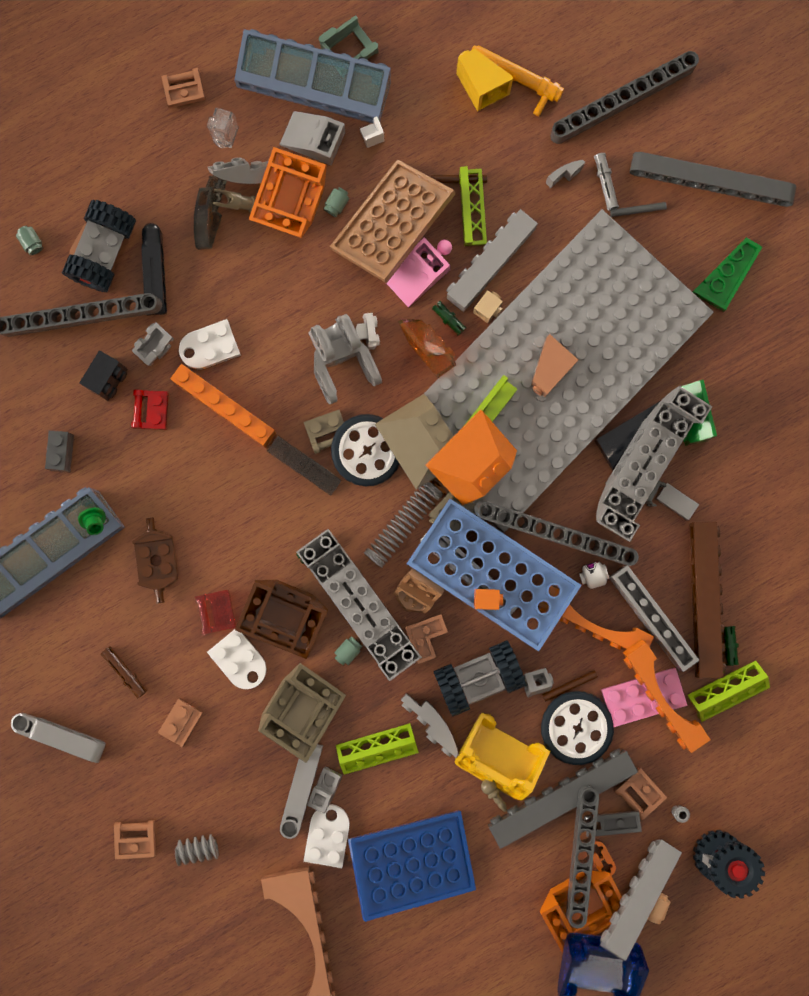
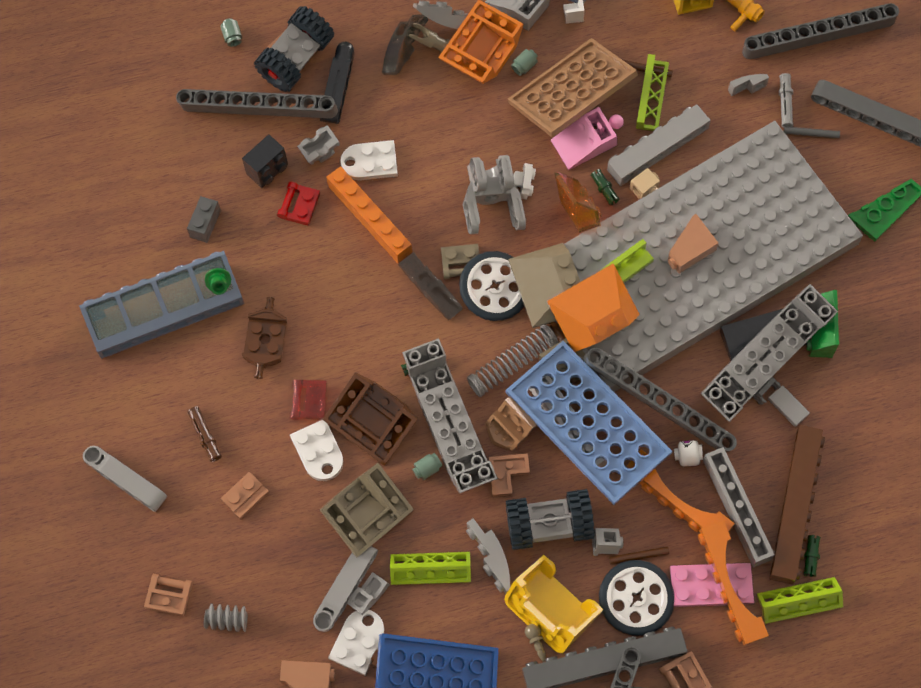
camera: 20 degrees right, 15 degrees down
(487, 599) = (575, 439): orange brick -> none

